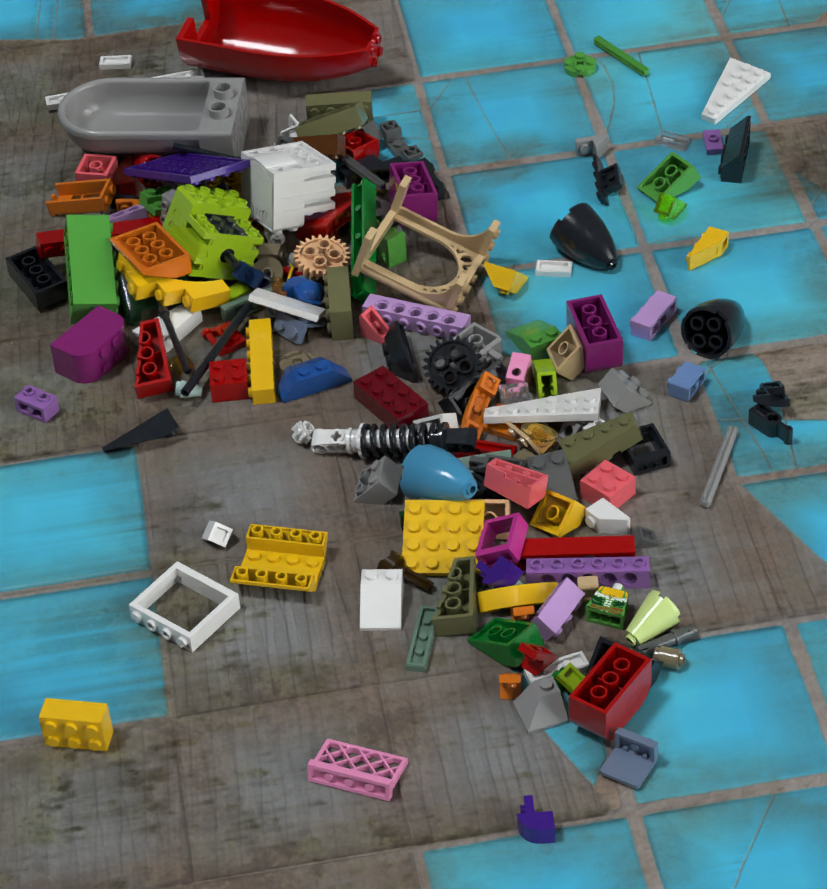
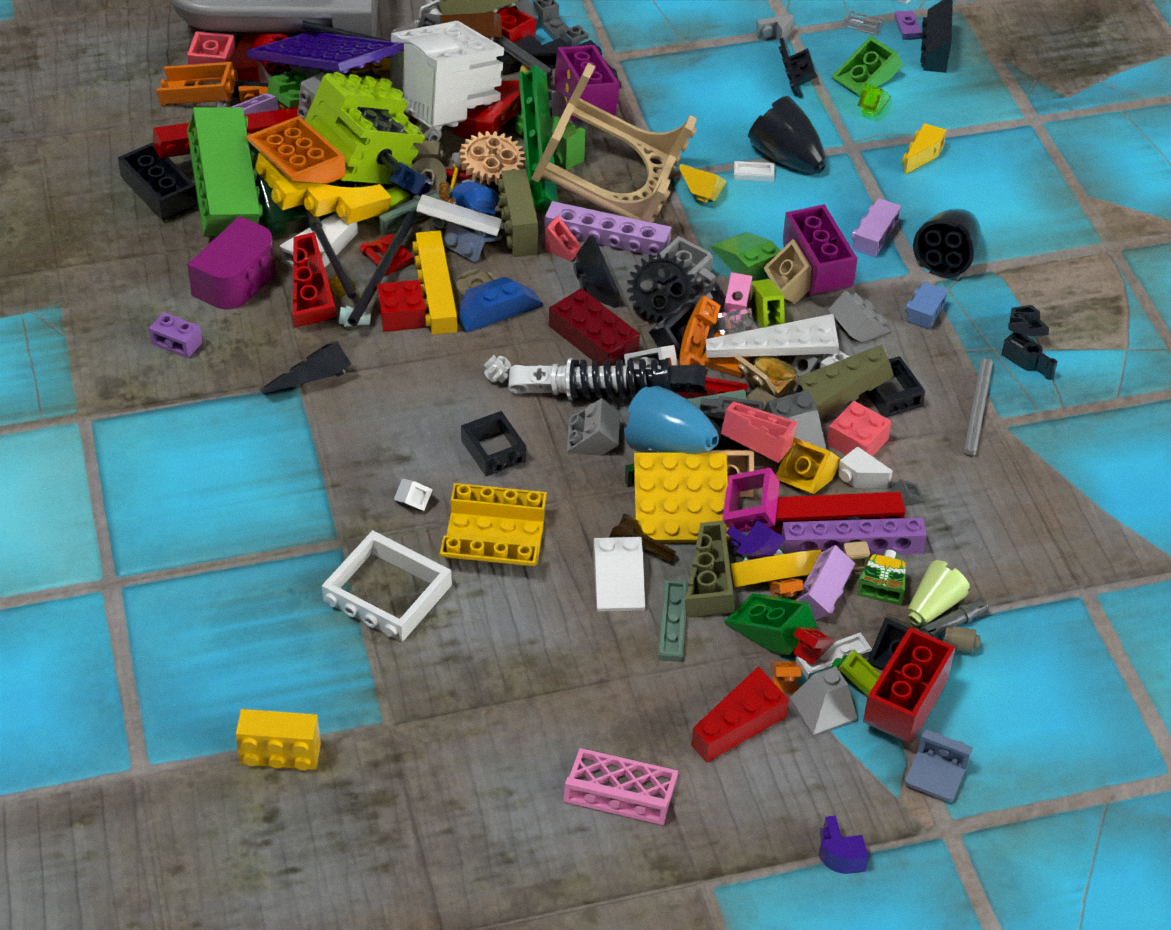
camera: 10 degrees left, 5 degrees up
(285, 481) = (486, 428): none -> black window
(465, 715) = (740, 715): none -> red wedge

